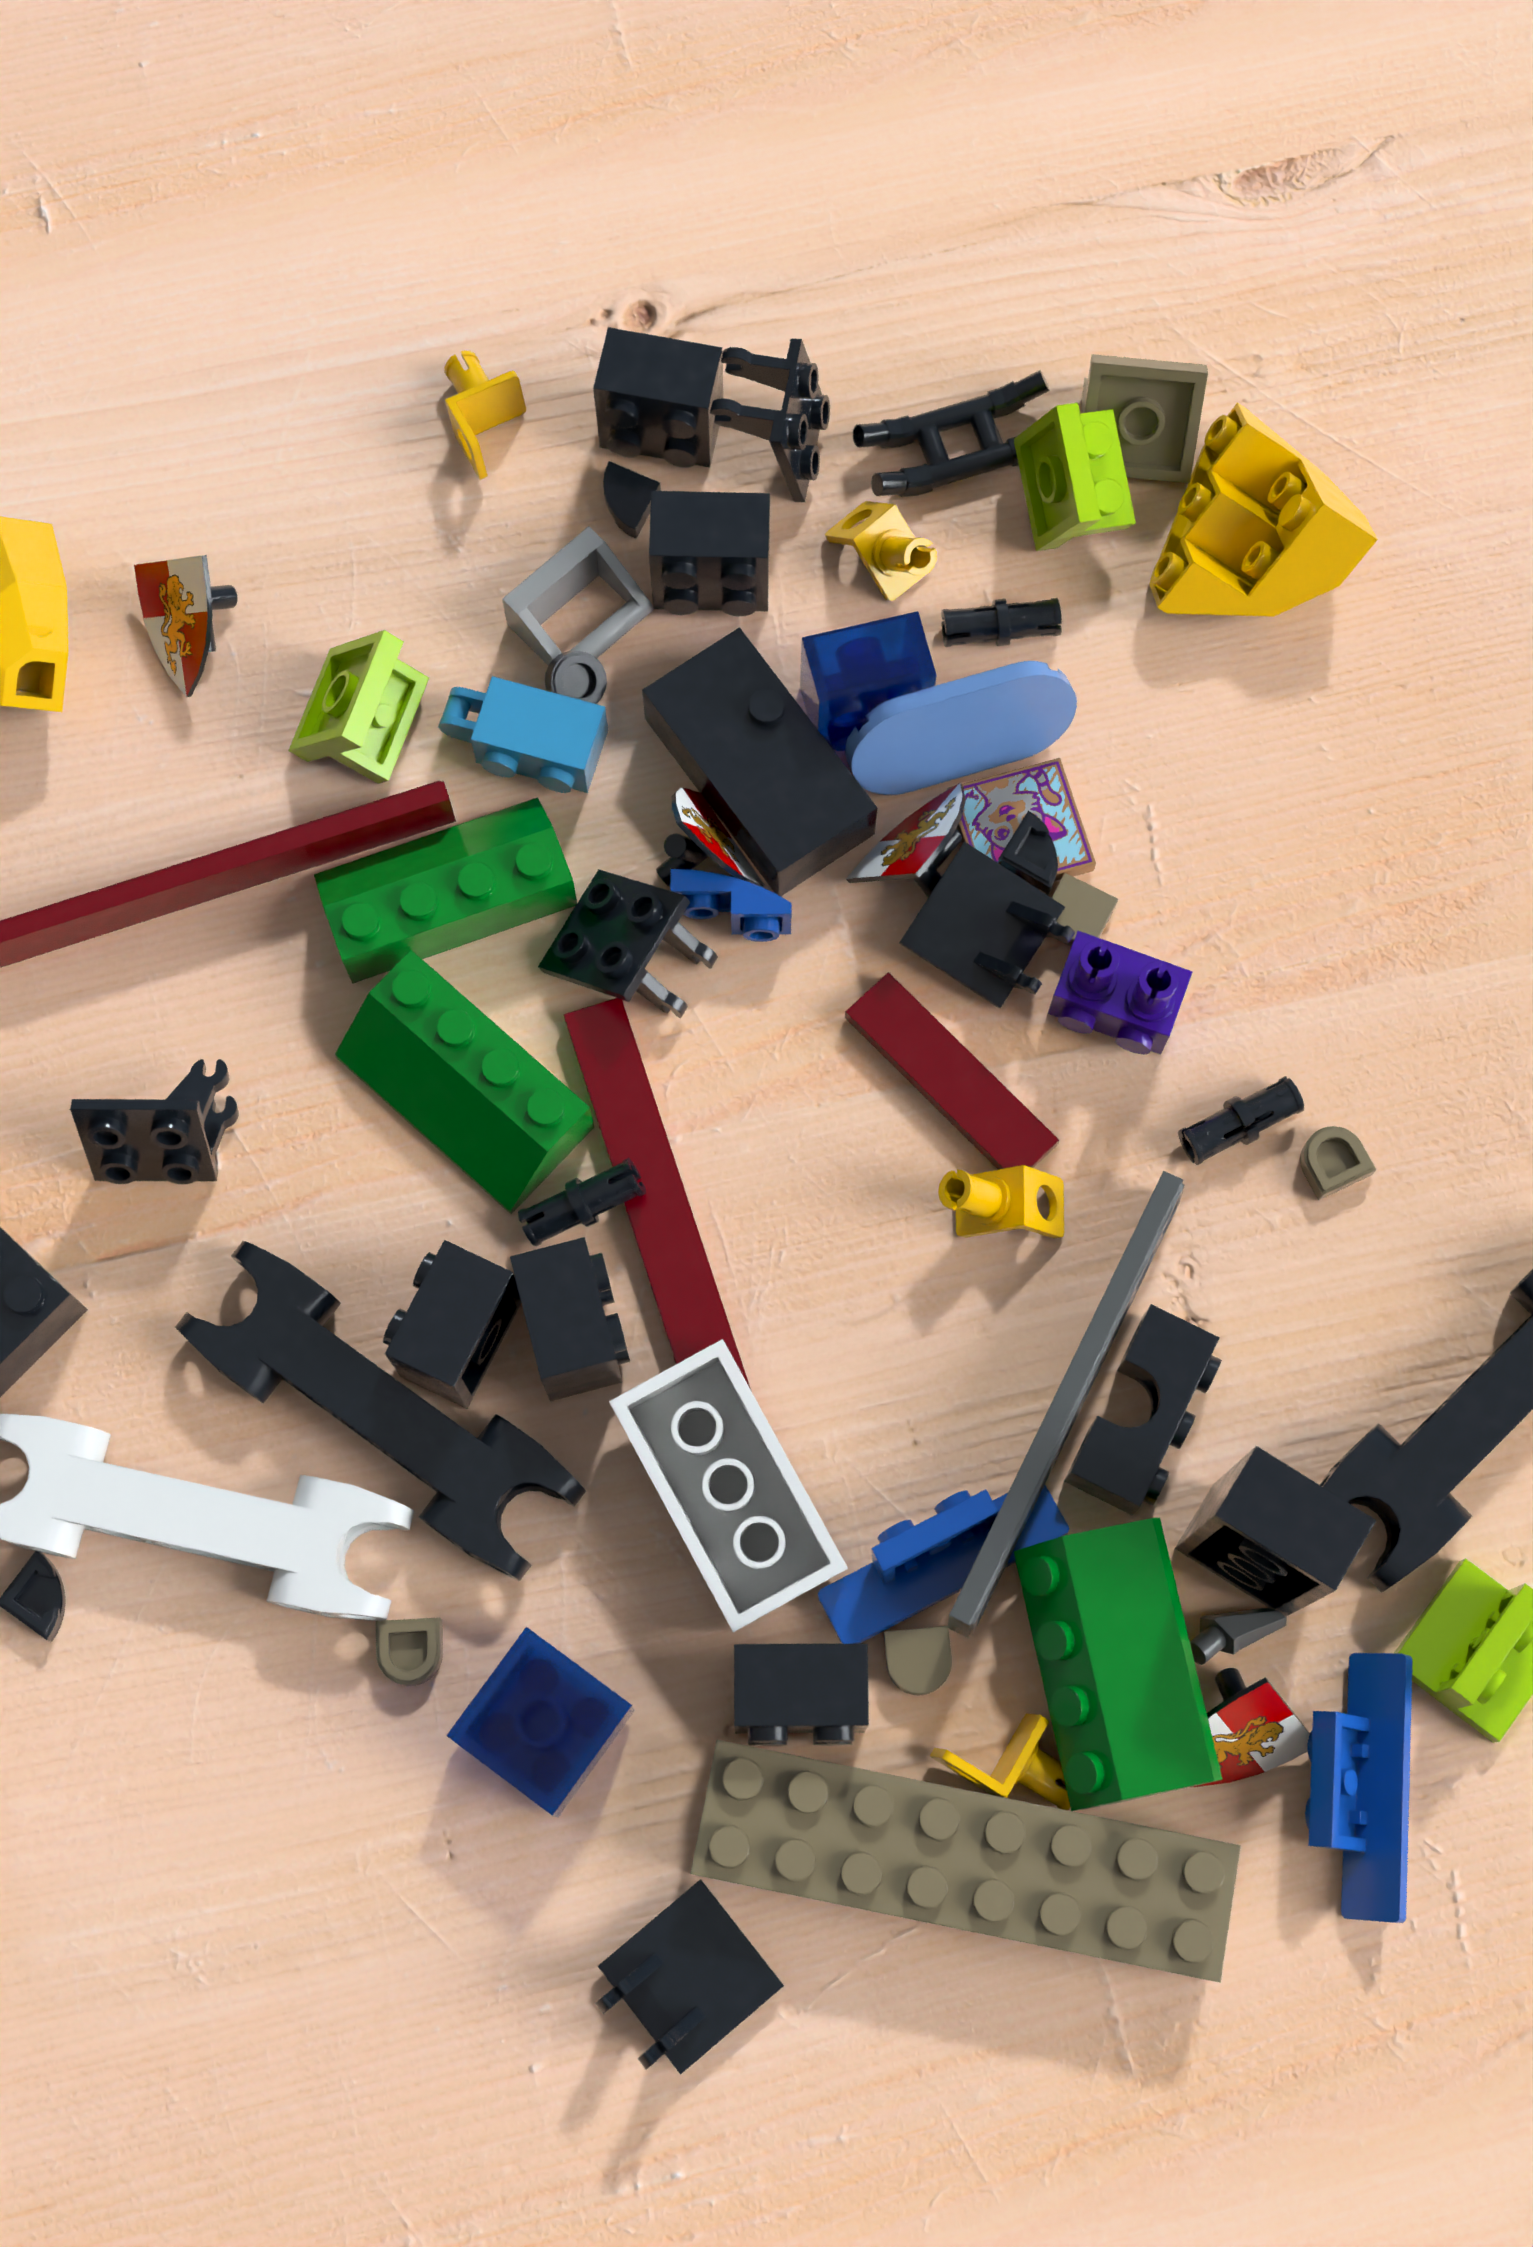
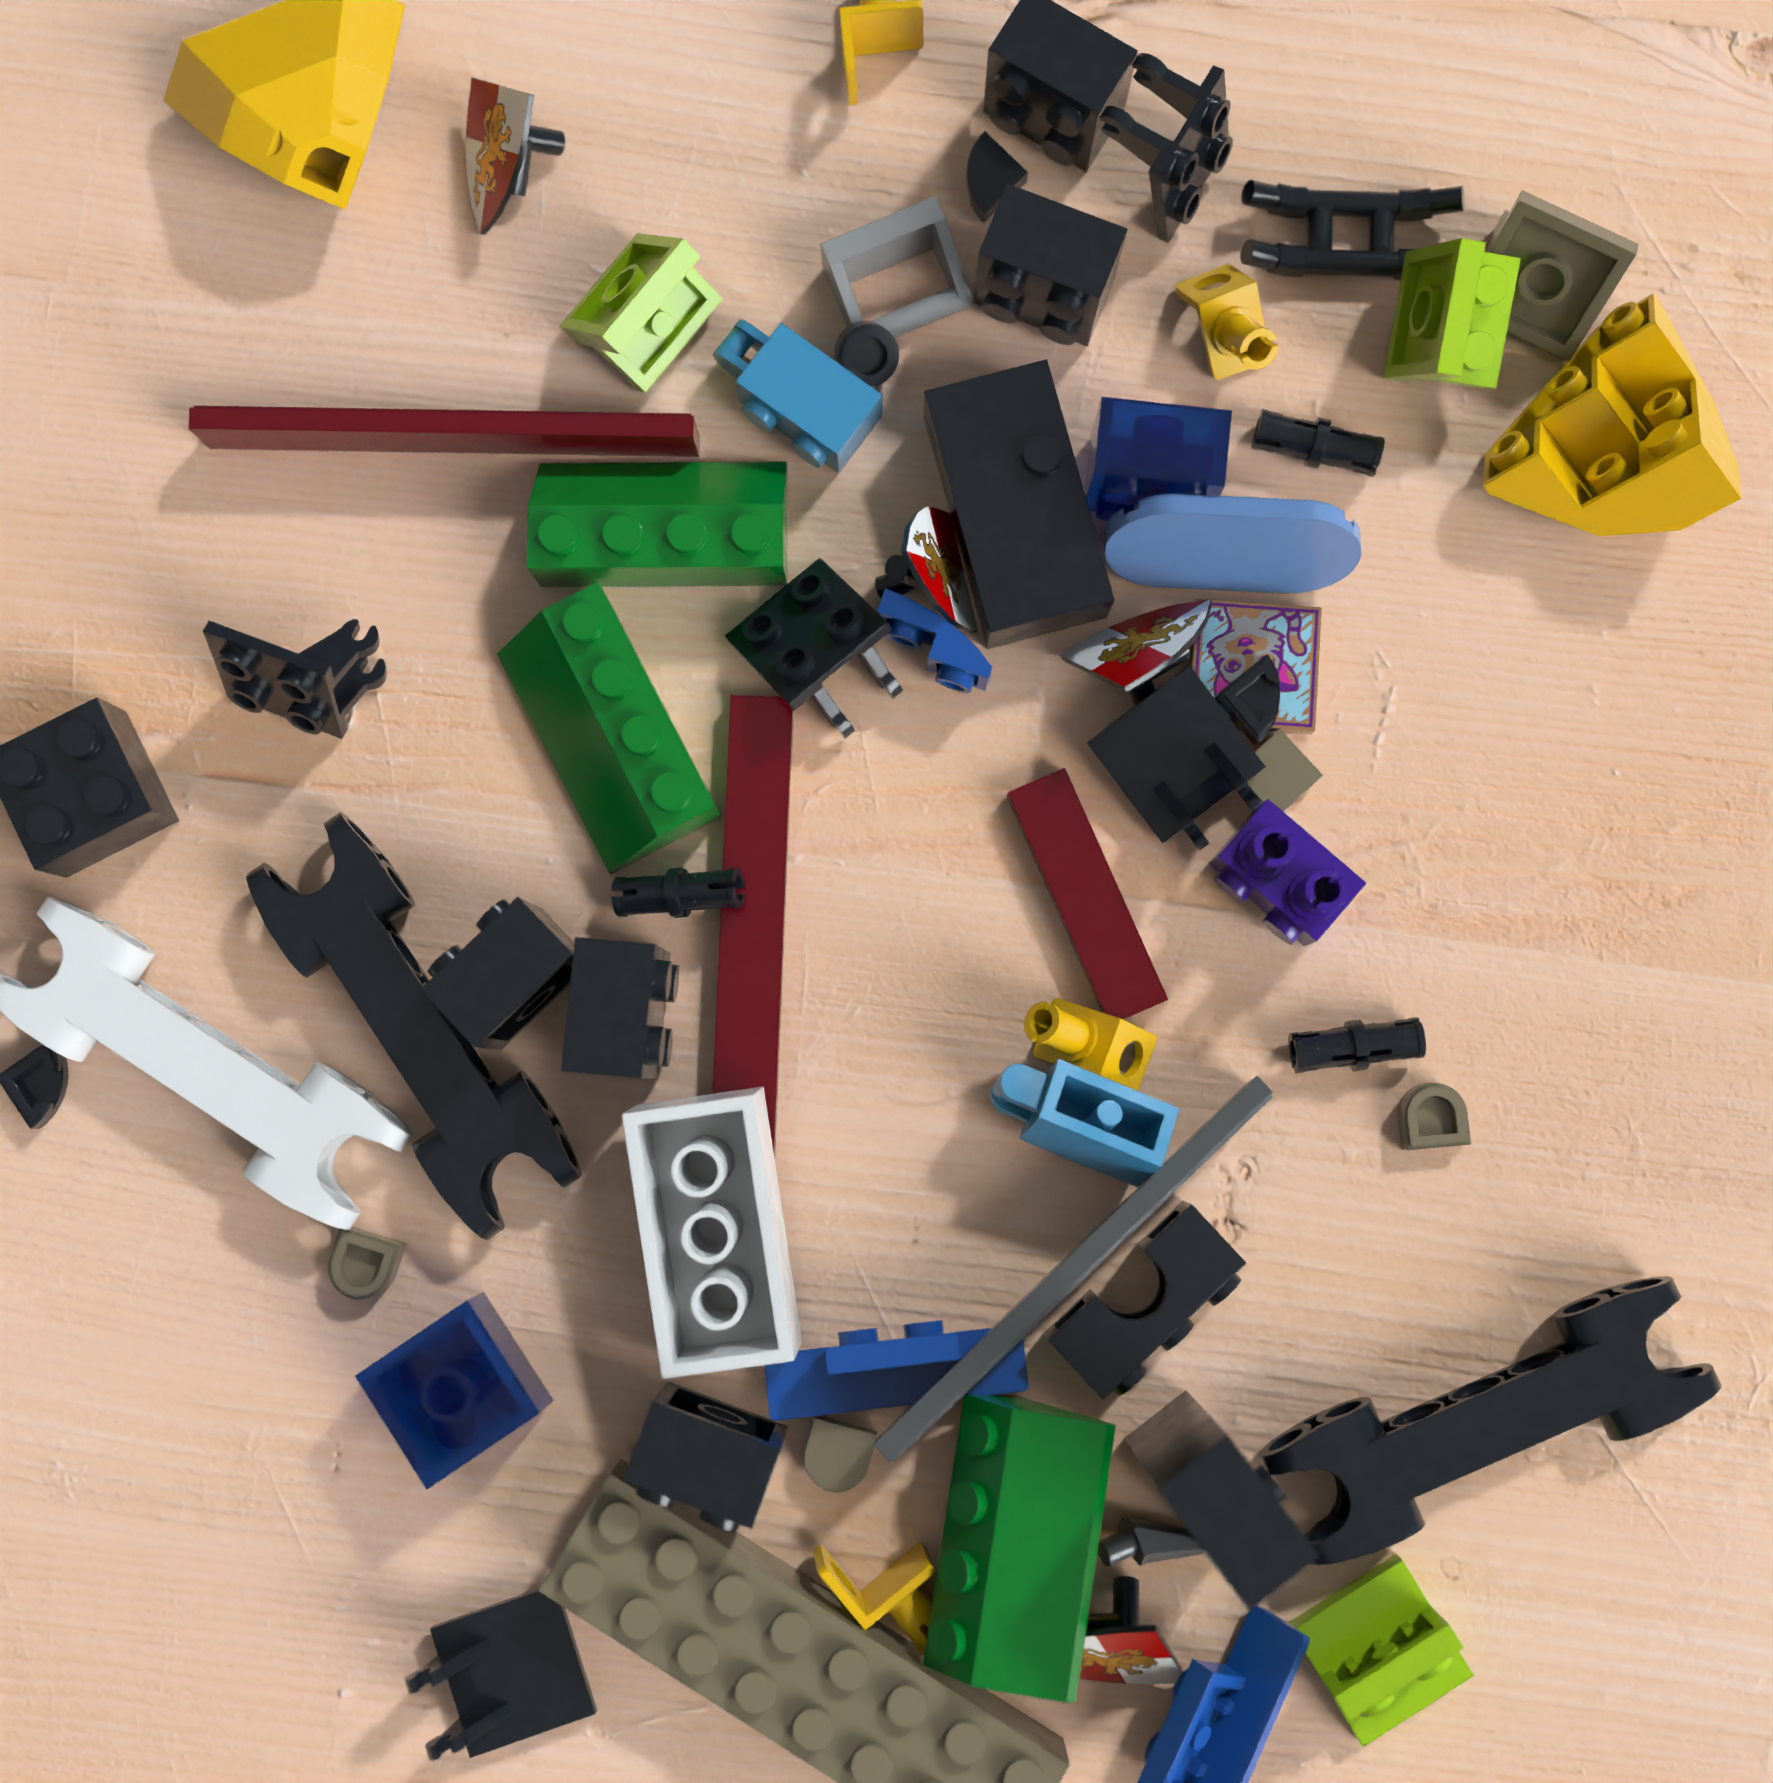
camera: 25 degrees right, 10 degrees up
(1028, 1265) = (1088, 1119): none -> dark azure brick

